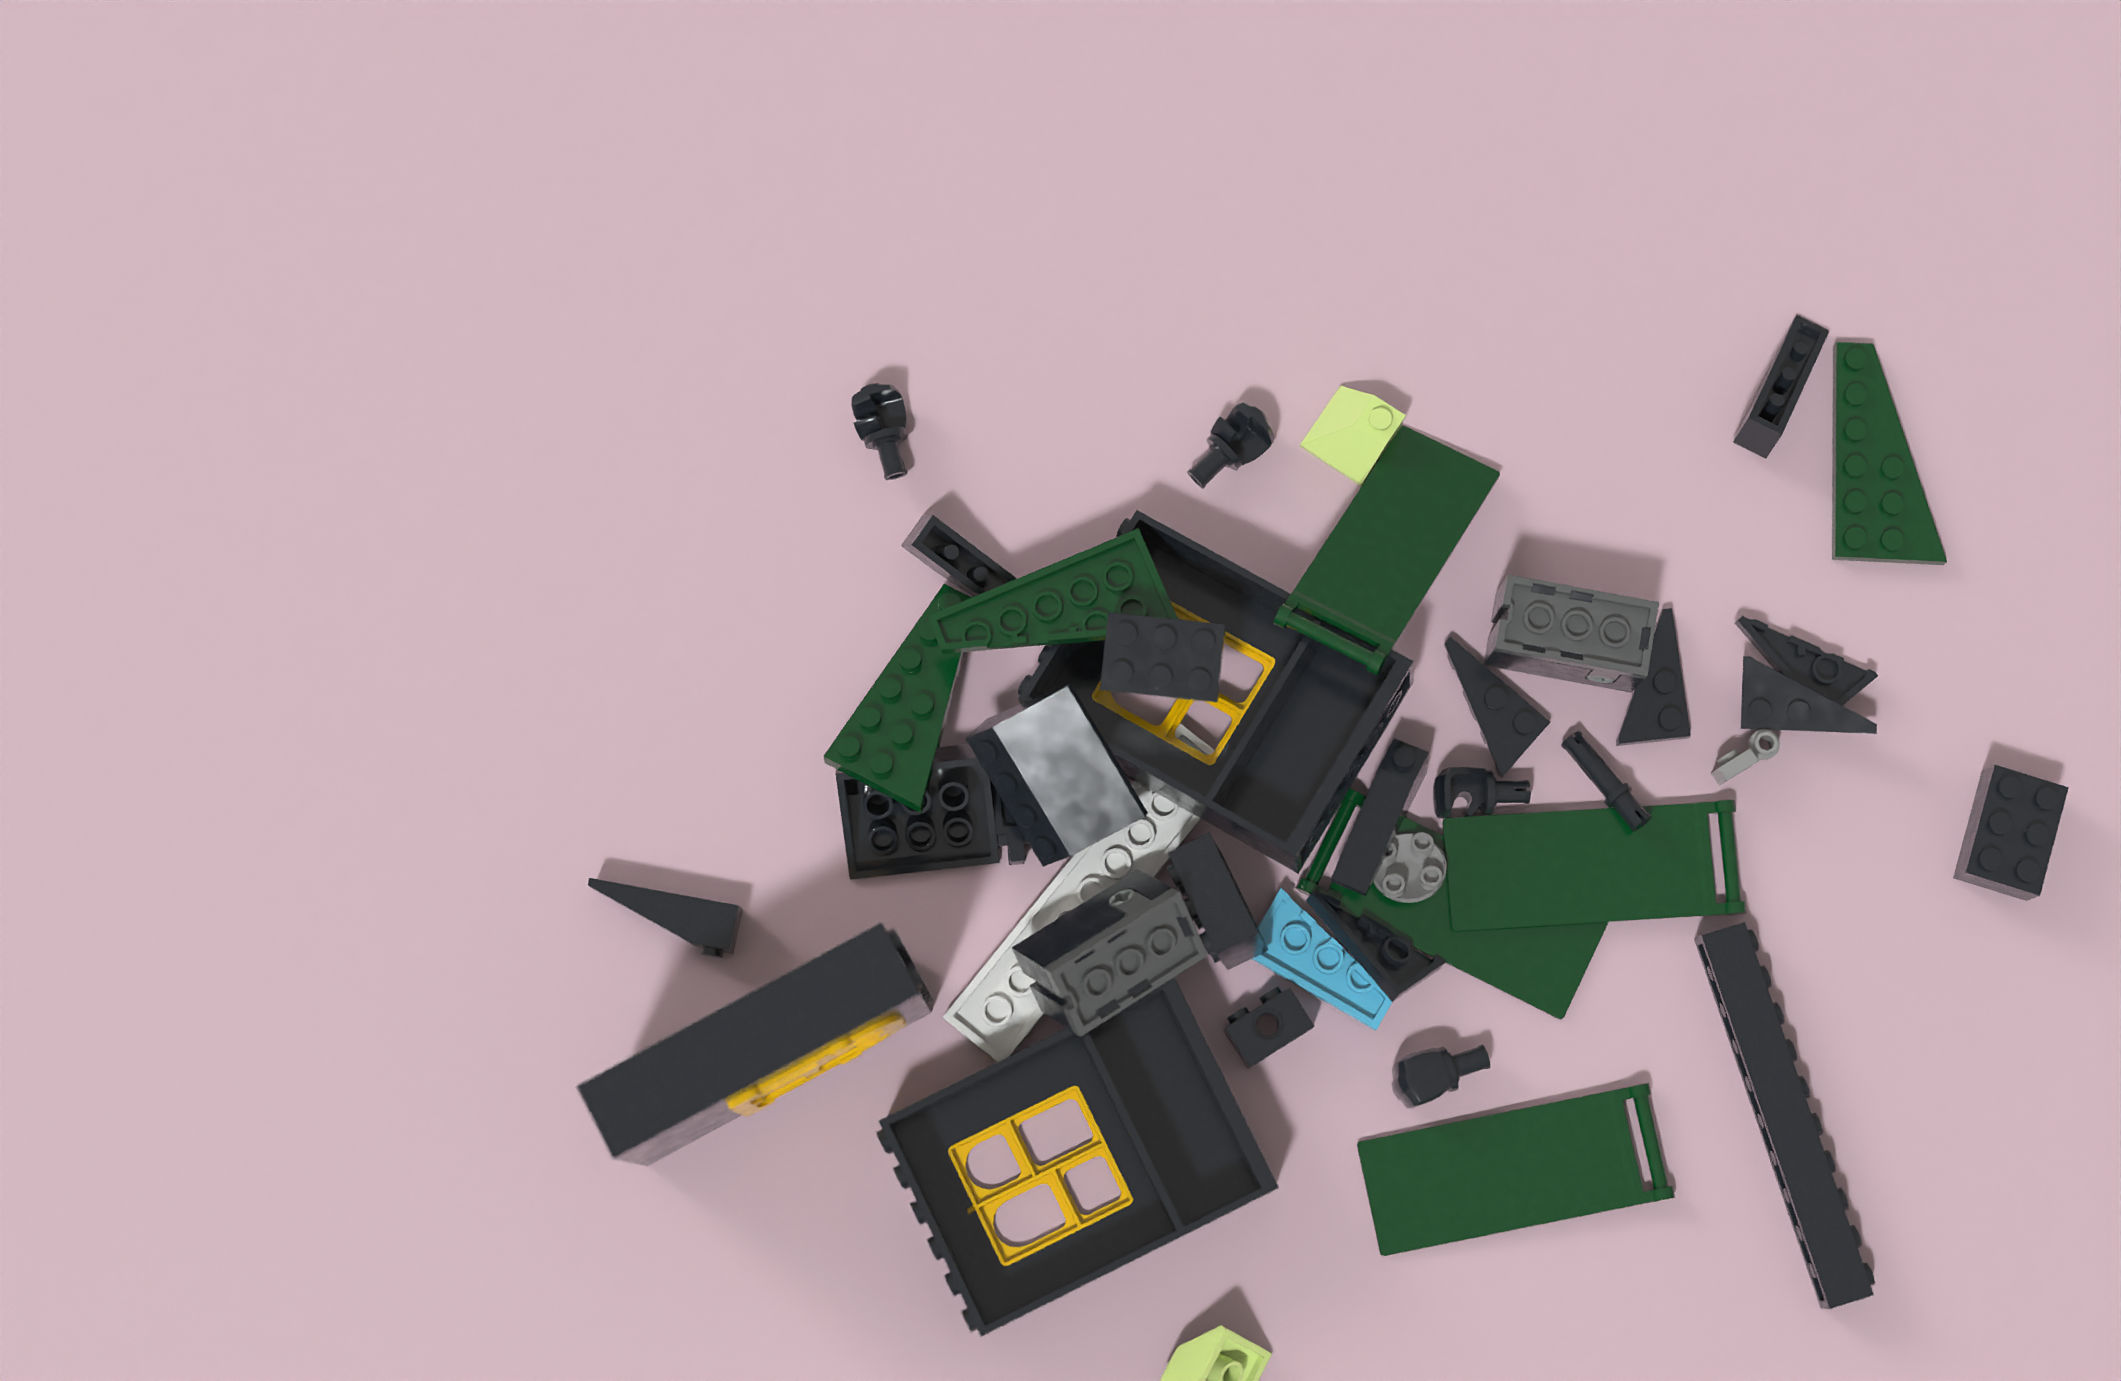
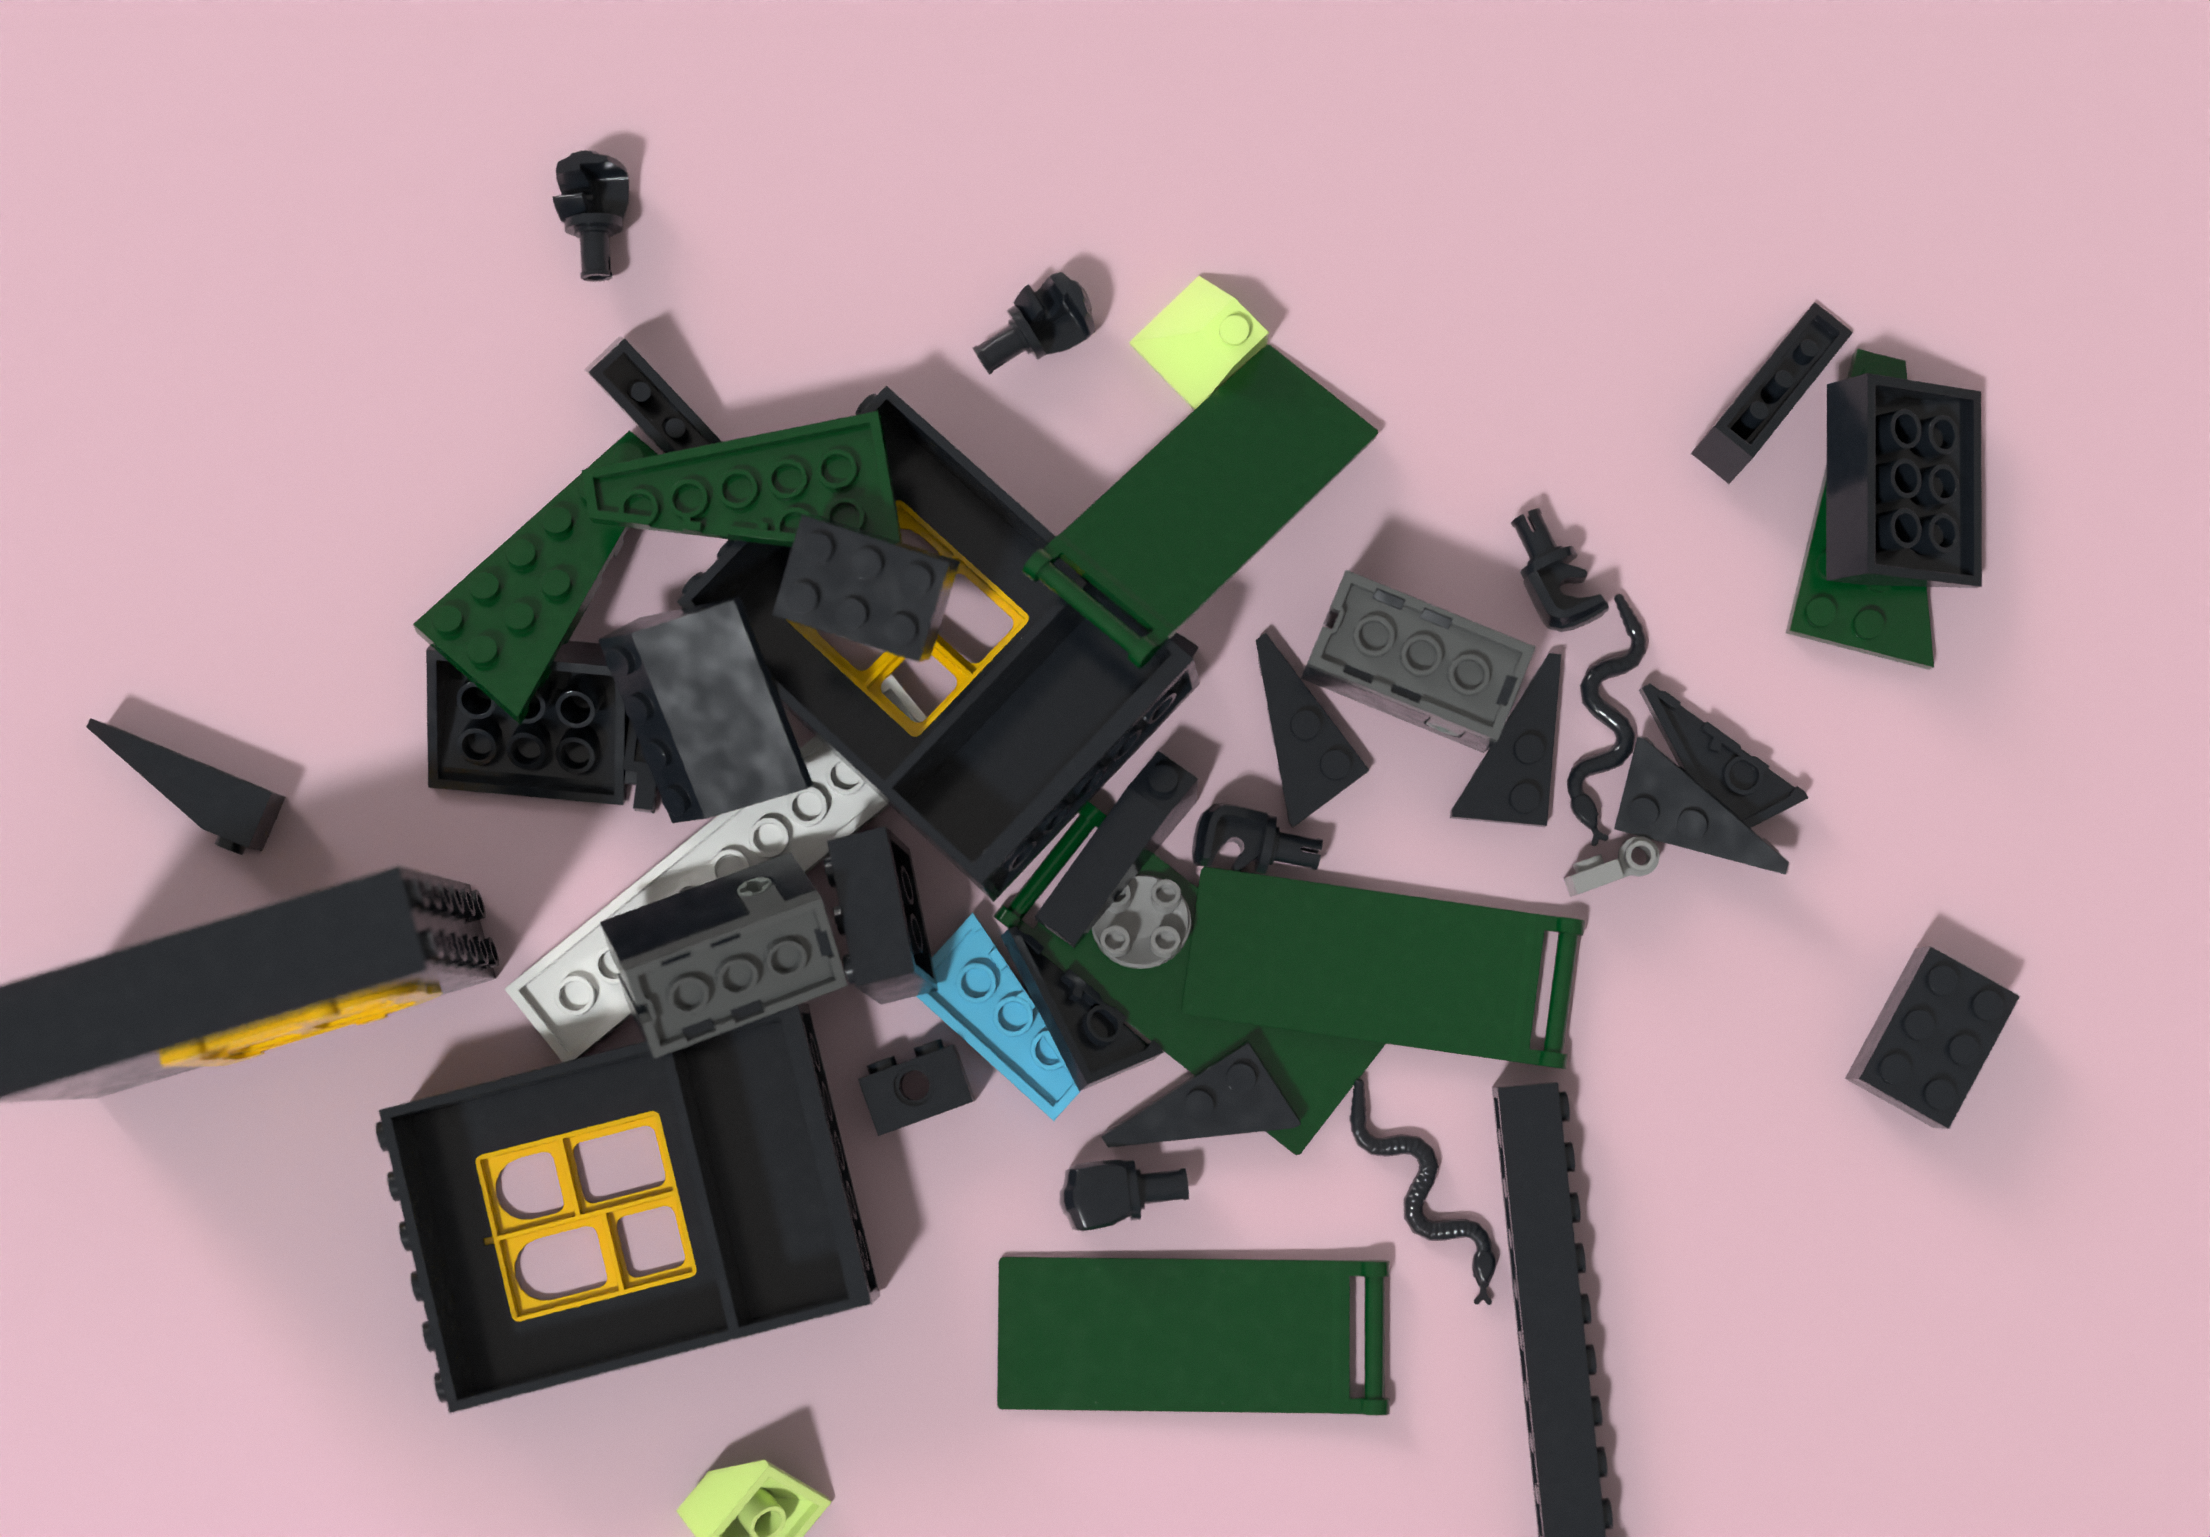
camera: 15 degrees right, 5 degrees up
(1497, 988) = (1220, 1100): none -> black wing
(1615, 792) = (1431, 879): black pin -> none
(1649, 548) = (1550, 570): none -> black piece
(1712, 715) = (1581, 803): none -> black animal
(1718, 1067) = (1483, 1260): none -> black animal
(1894, 432) = (1903, 483): none -> black slope

